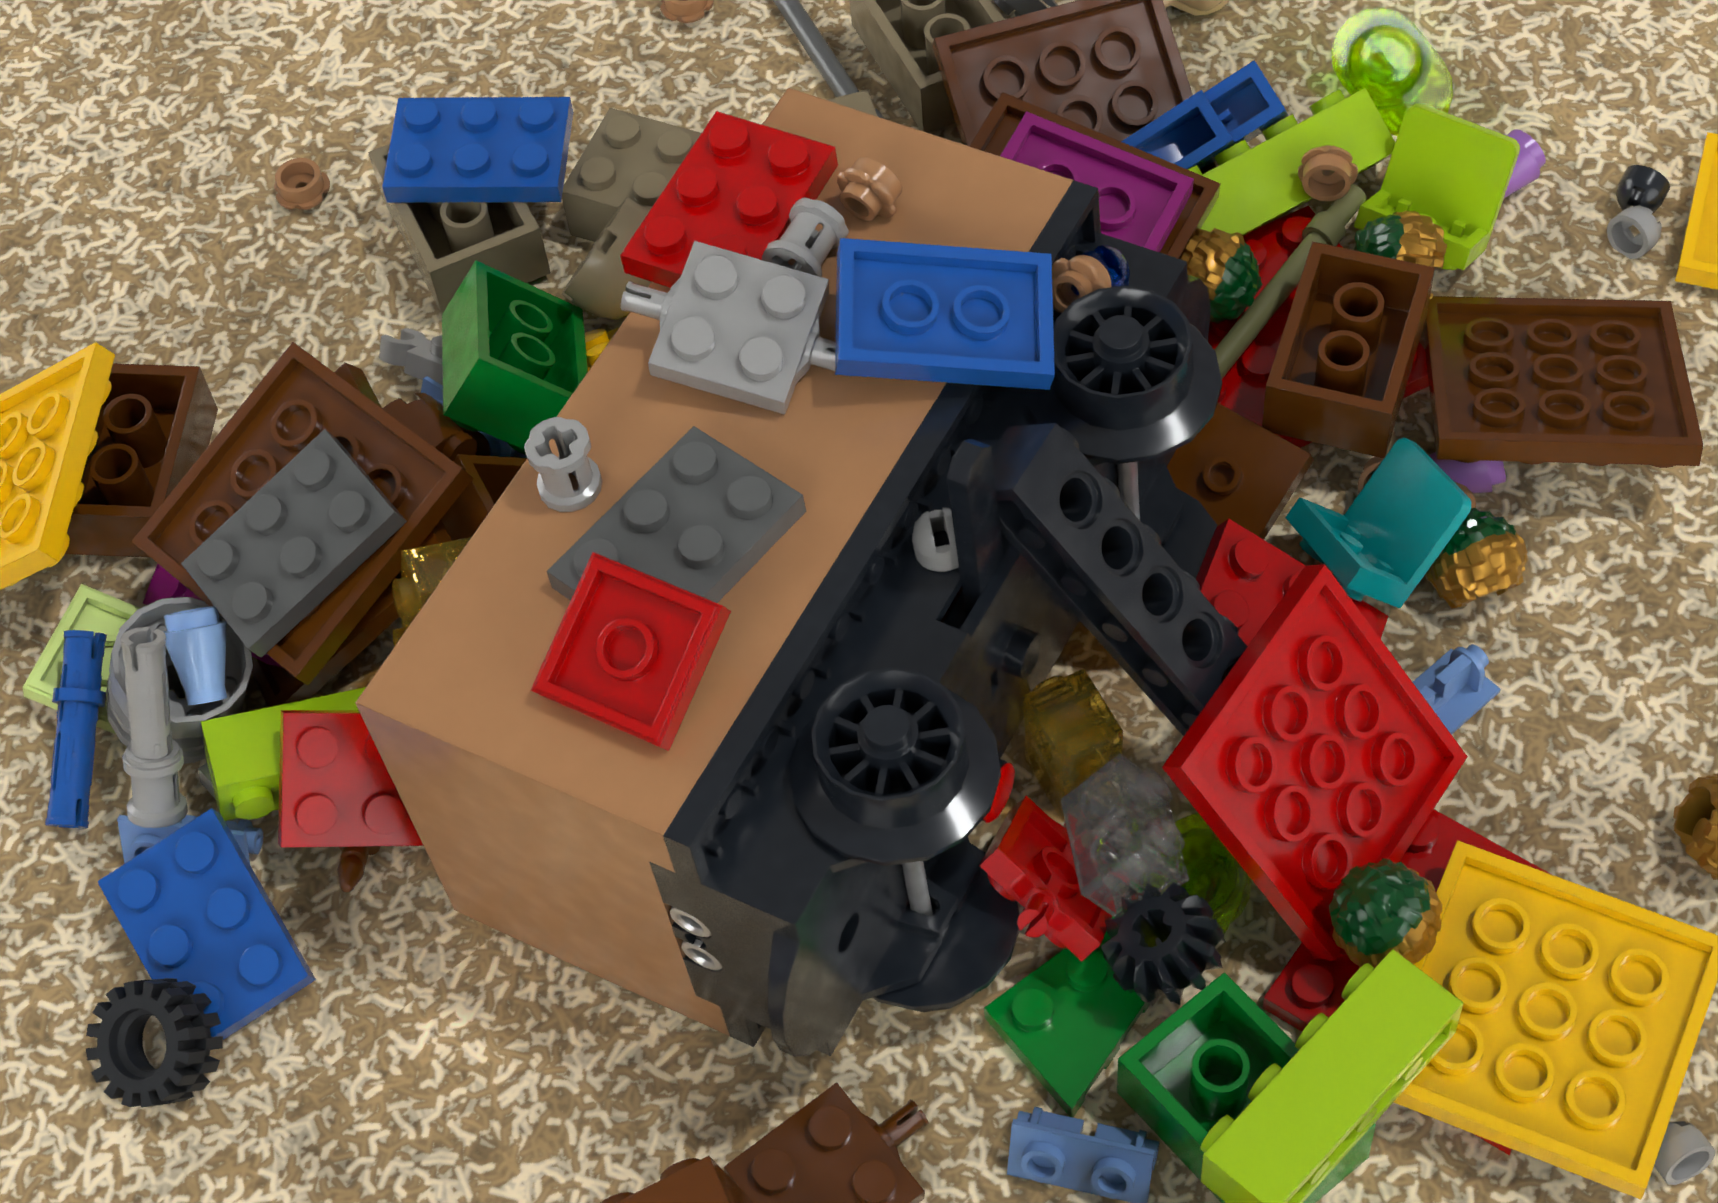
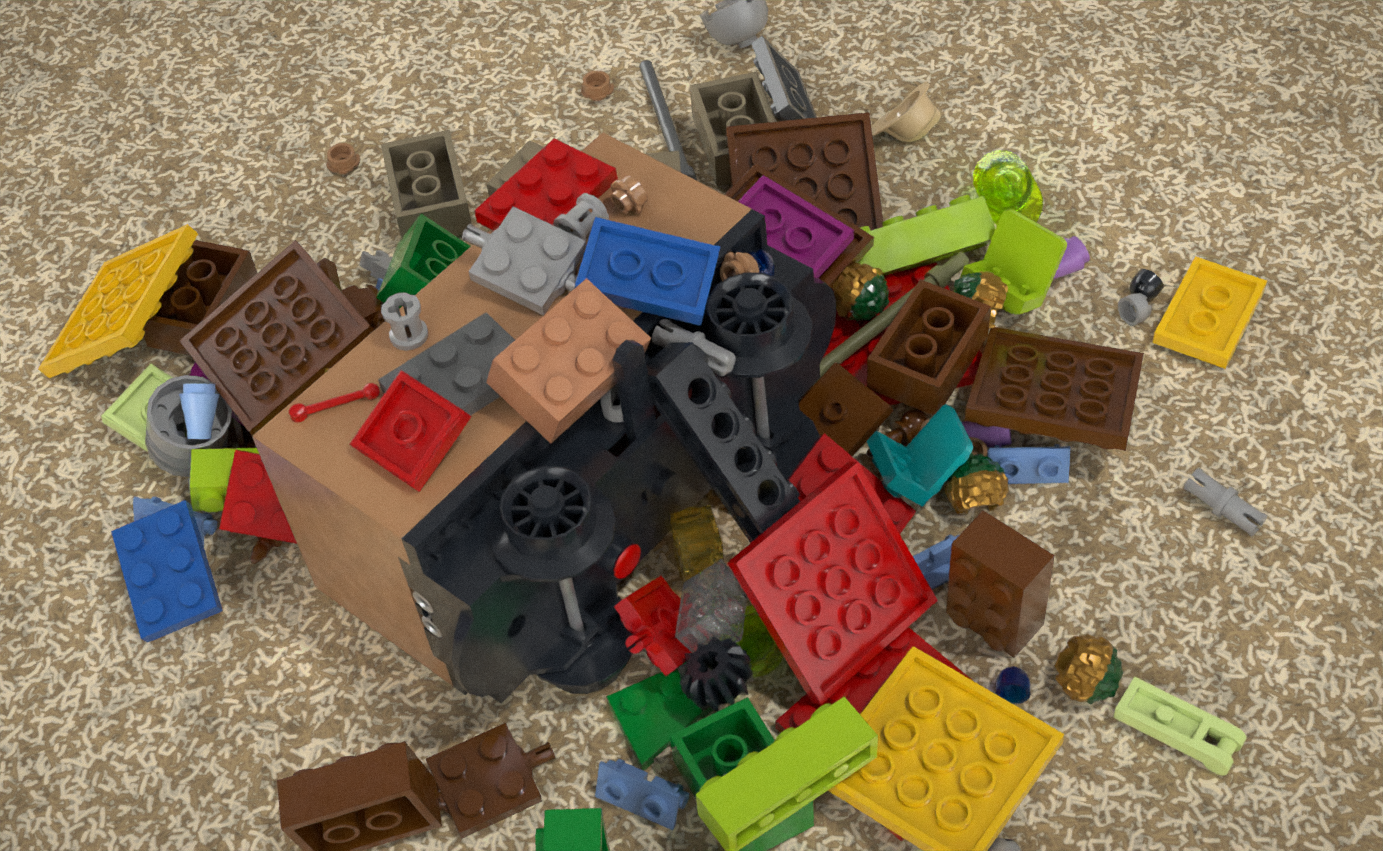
camera: 10 degrees right, 5 degrees down
(76, 728) = (122, 451): blue pin -> none
(122, 1049) = (102, 622): black tyre -> none
(153, 754) = (158, 463): light grey pin -> none
(293, 543) = (265, 354): dark grey plate -> none
(425, 648) = (299, 412): none -> red hinge
(478, 149) = (443, 152): blue plate -> none
(860, 488) = (564, 360): none -> nougat brick
(1002, 410) = (720, 359): none -> light grey axle
(1212, 120) = (885, 200): blue slope -> none
(1327, 172) = (946, 242): medium nougat plate -> none
(1336, 485) = (907, 428): none -> reddish brown bar
(1385, 910) = (853, 675): dark green piece -> none
(1551, 507) = (1033, 464): none -> medium blue hinge
(1567, 716) = (998, 584): none -> reddish brown brick
(1617, 870) = (1013, 685): none -> clear blue hinge

